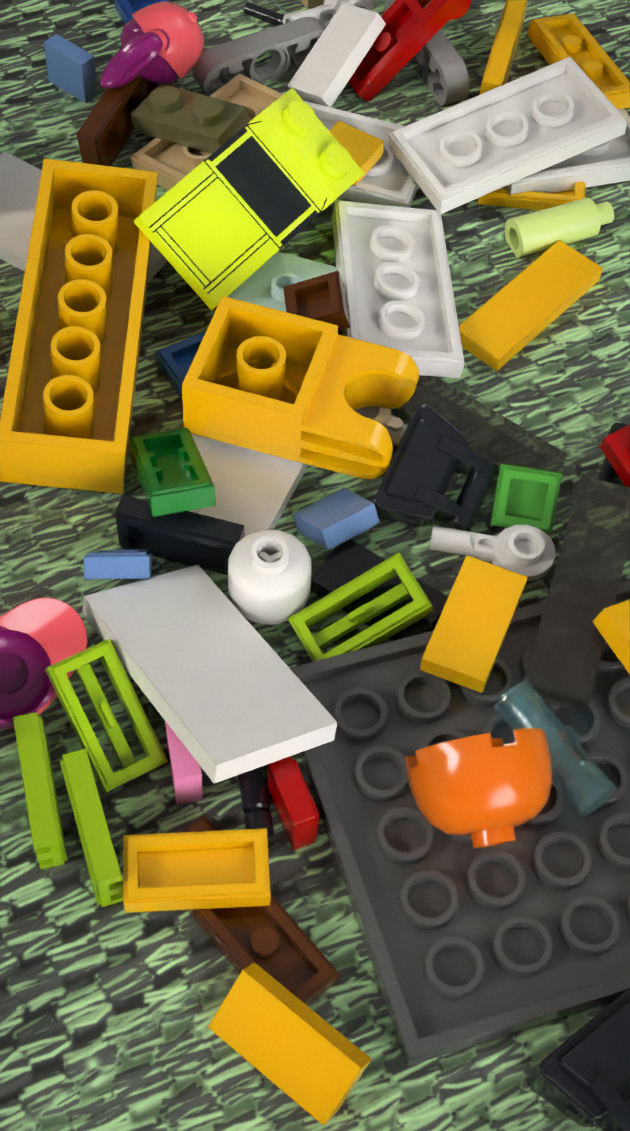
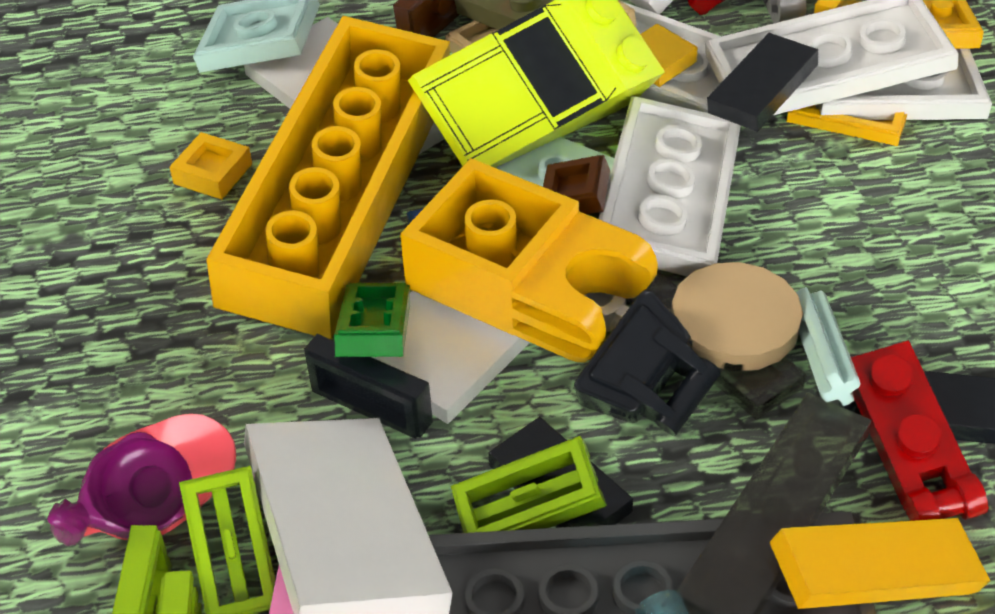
camera: 20 degrees right, 10 degrees down
(118, 564) = (296, 401): medium blue tile -> none
(269, 576) = (442, 439): white head -> none
(336, 518) = (535, 397): medium blue tile -> none
(458, 171) = (762, 81): none -> black tile
(473, 624) = (642, 525): yellow tile -> none
(497, 407) = (738, 314): none -> tan tile
(516, 548) = (719, 465): white plate -> none
(526, 497) = (745, 410): bright green tile -> none
(528, 304) = (811, 221): yellow tile -> none
(563, 222) = (863, 151): yellowish green cylinder -> none
(581, 427) = (826, 349): none -> light aqua axle

